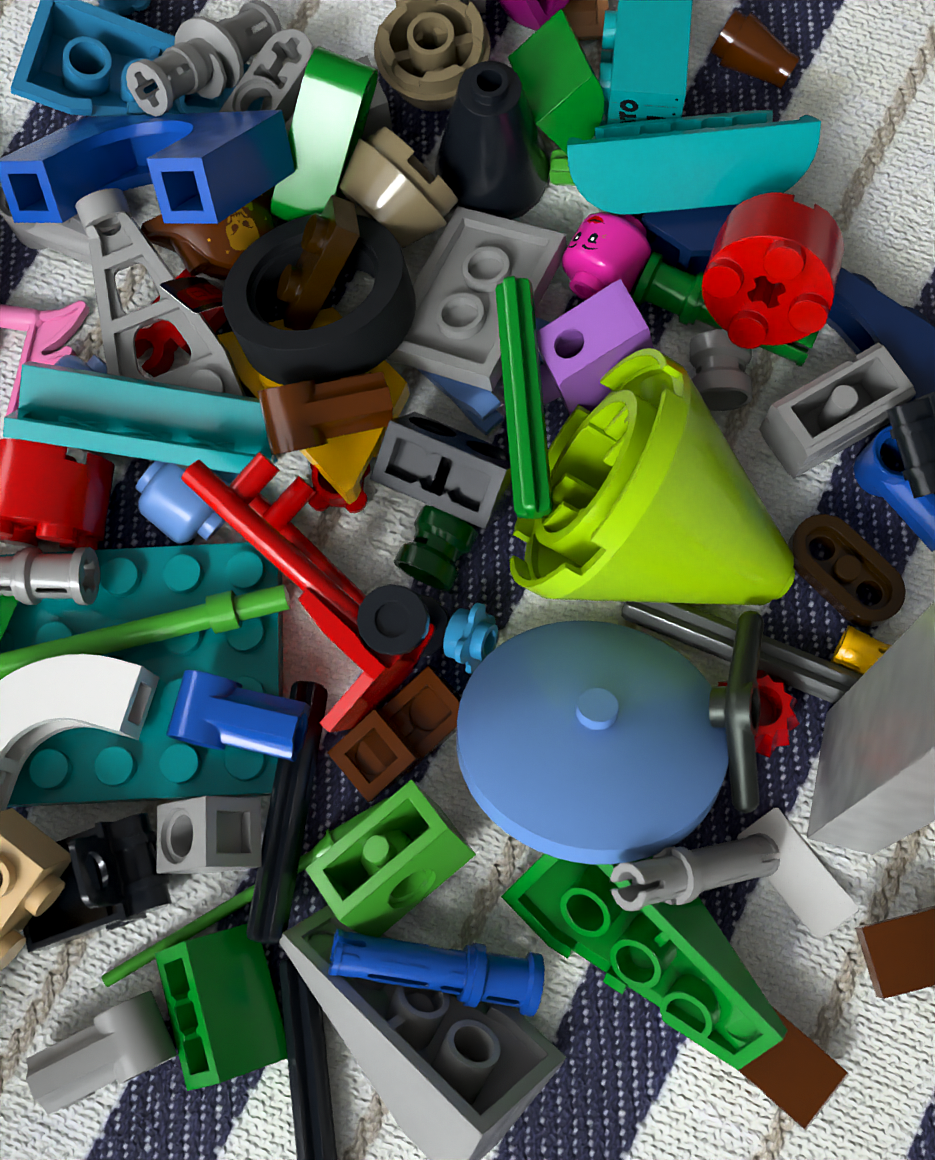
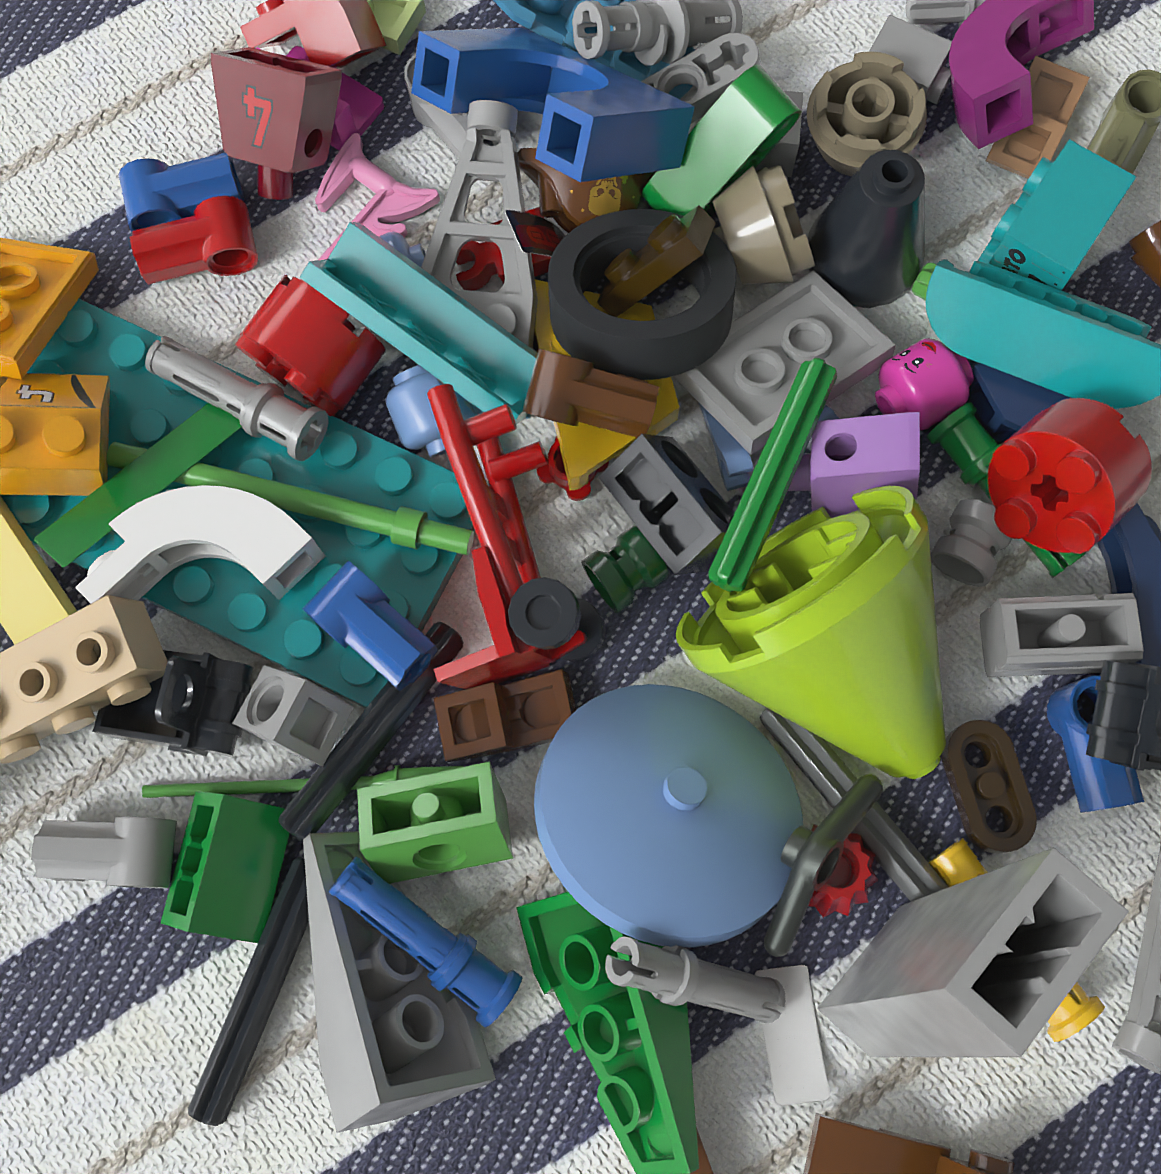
camera: 25 degrees right, 0 degrees up
(470, 636) = (613, 663): dark azure plate -> none
(559, 82) = (965, 202): green brick -> none

